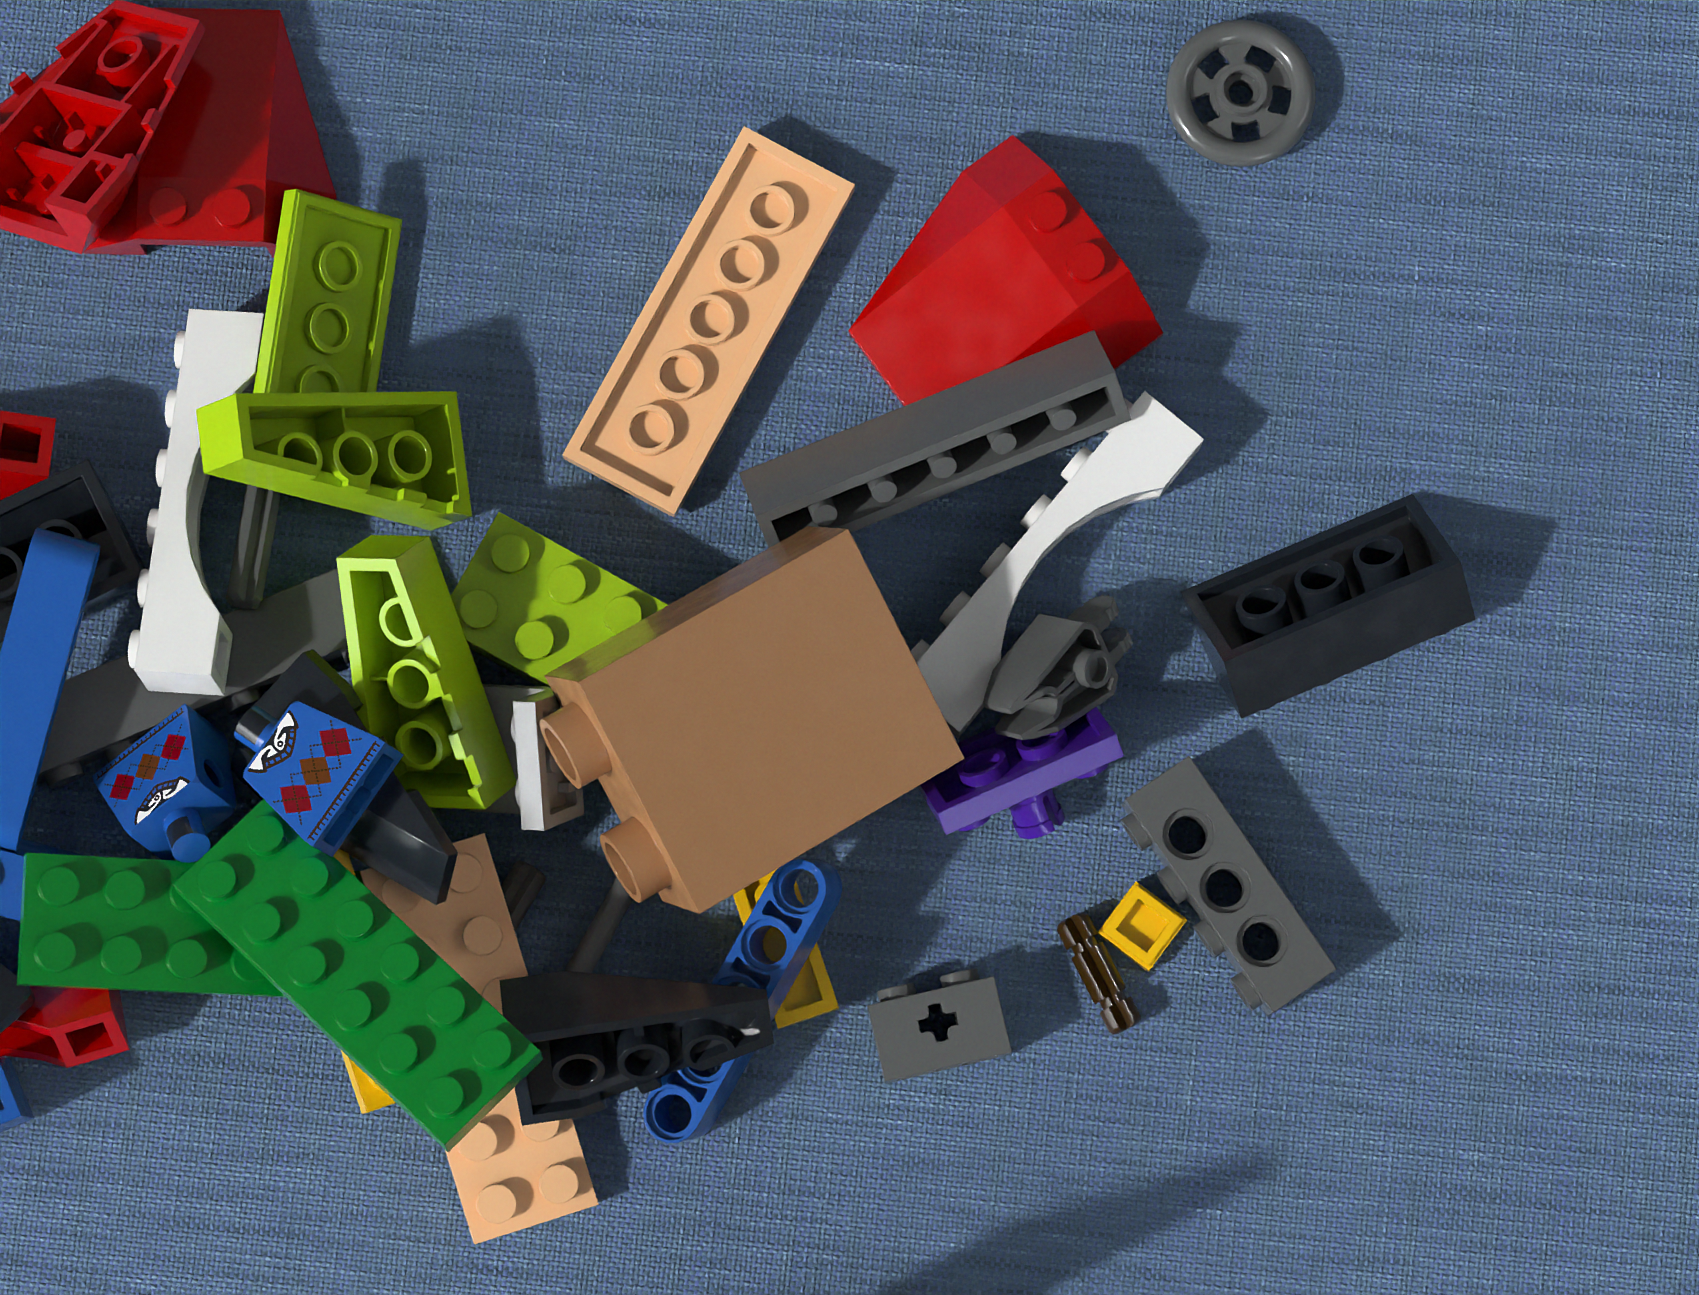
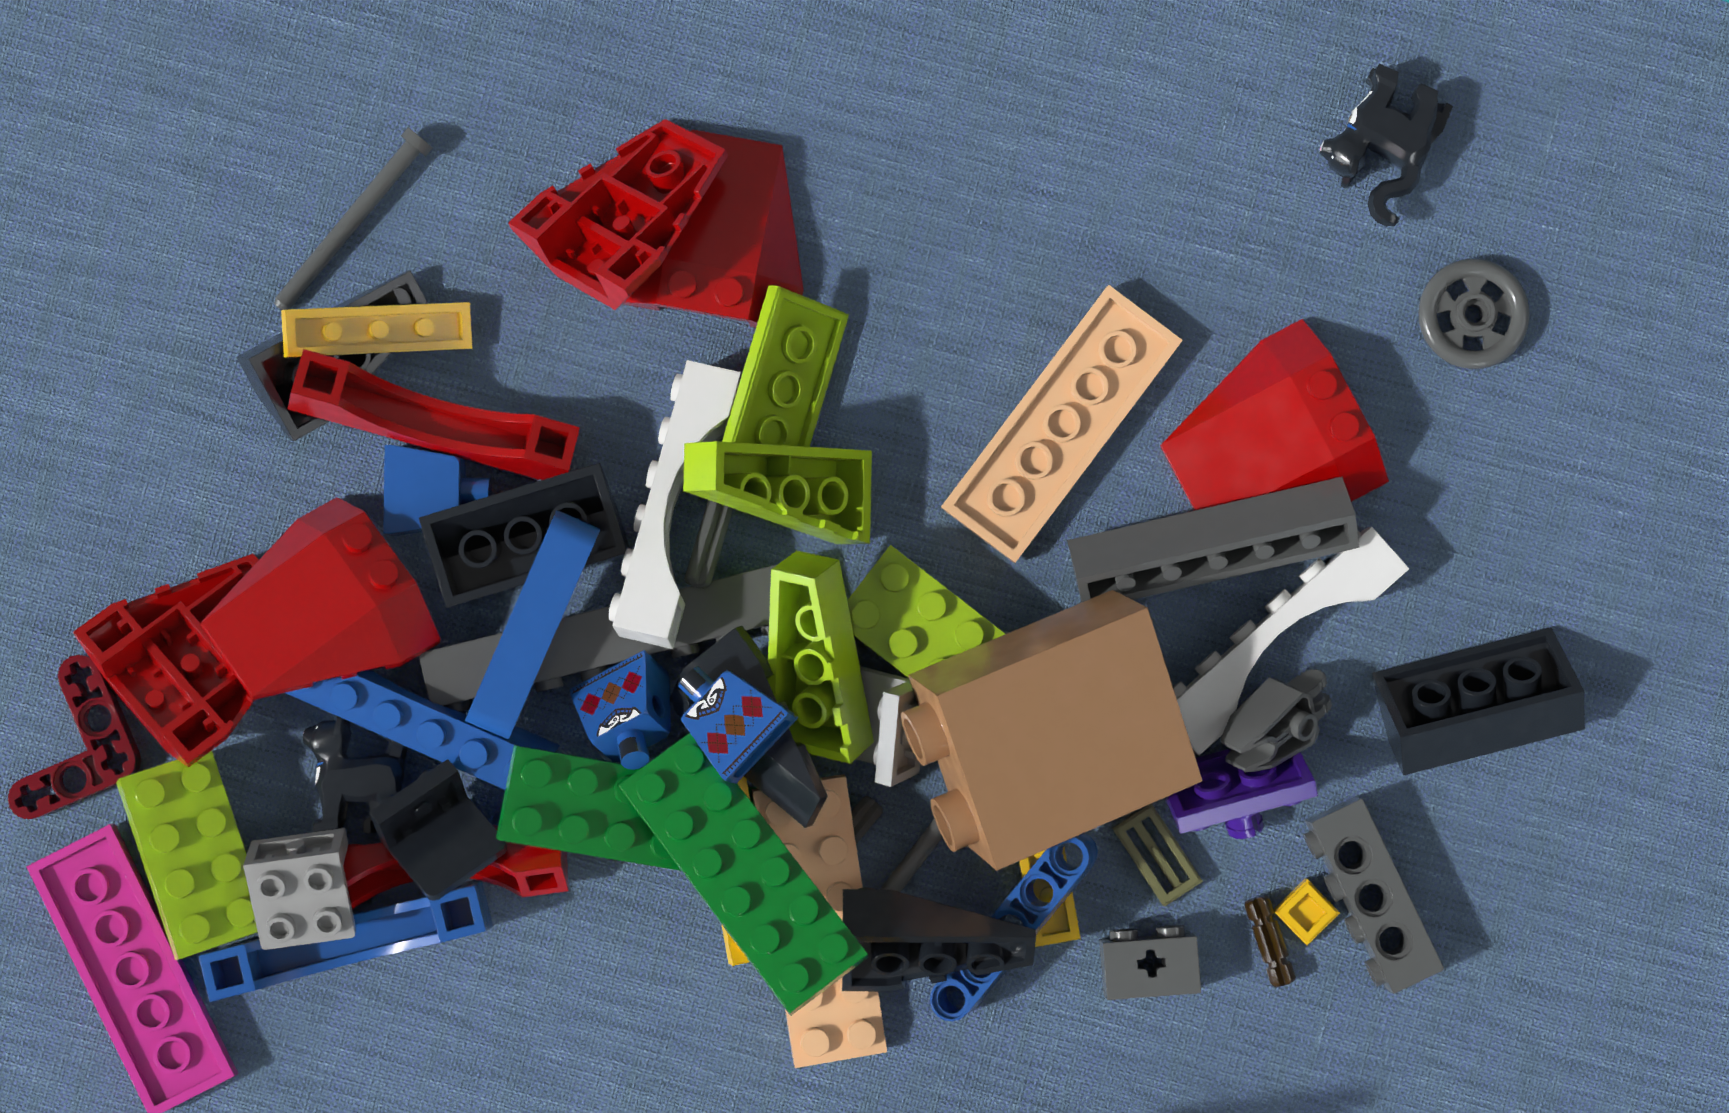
camera: 15 degrees right, 5 degrees up
(963, 920) = (1134, 821): none -> olive tile

